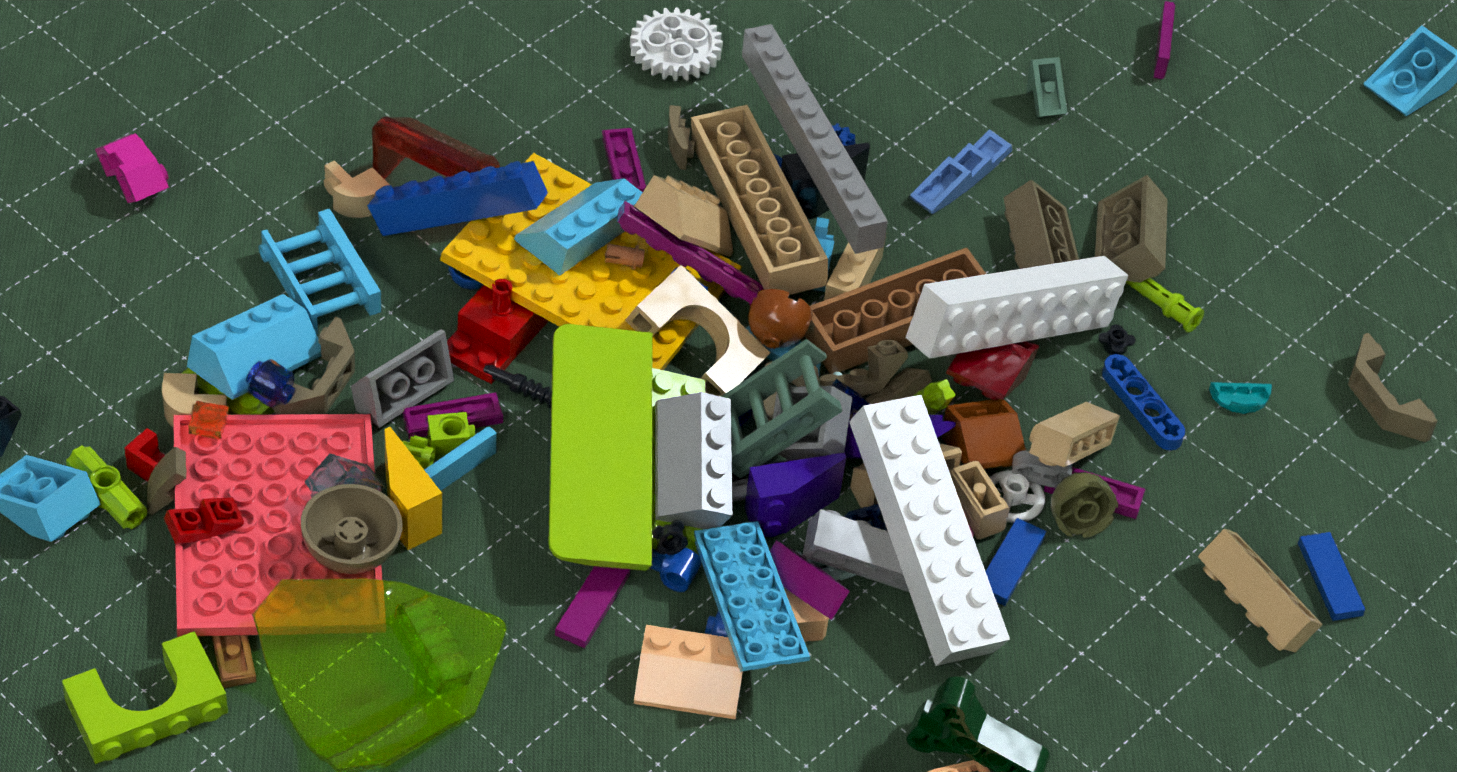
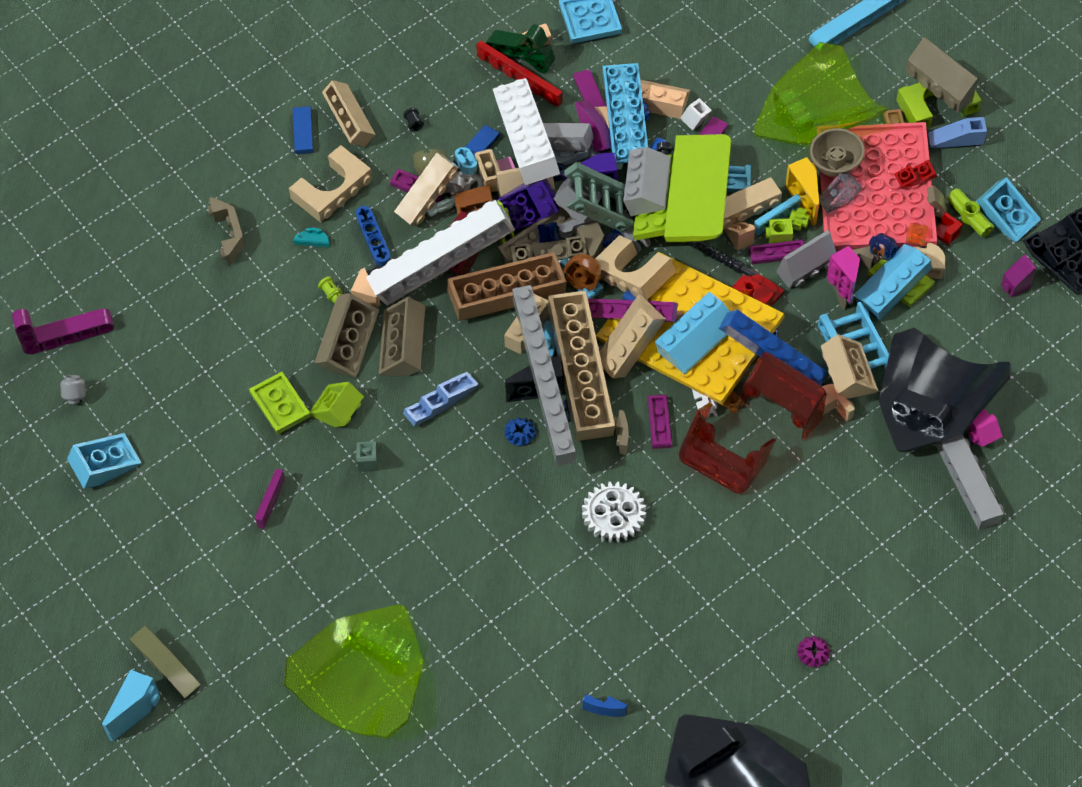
camera: 165 degrees left, 10 degrees up
(35, 372) = (1018, 277): none -> magenta slope
(110, 624) = (961, 133): none -> medium blue slope
(141, 691) = (942, 75): none -> dark tan slope
(156, 109) = (971, 482): none -> light grey brick
(187, 190) = (931, 393): none -> black windscreen
(333, 201) = (848, 367): none -> tan slope
(341, 320) = (843, 272): none -> dark pink slope
(503, 476) = (751, 201): none -> tan brick
(517, 109) = (717, 462): none -> clear red windscreen
(519, 429) = (741, 234): none -> light nougat slope
(527, 520) = (738, 181): none -> medium azure plate
(618, 625) = (695, 114): none -> white brick
(829, 684) = (588, 88): none -> magenta tile
(928, 677) = (517, 72): none -> red plate
(1027, 507) = (466, 161): none -> medium azure beam
(1113, 152) = (337, 404): none -> lime slope
(1131, 312) = (363, 289): none -> light nougat slope
(1139, 599) = (413, 119): none -> black bush
(1198, 156) = (279, 403): none -> lime plate
(1245, 440) = (323, 203): none -> tan arch

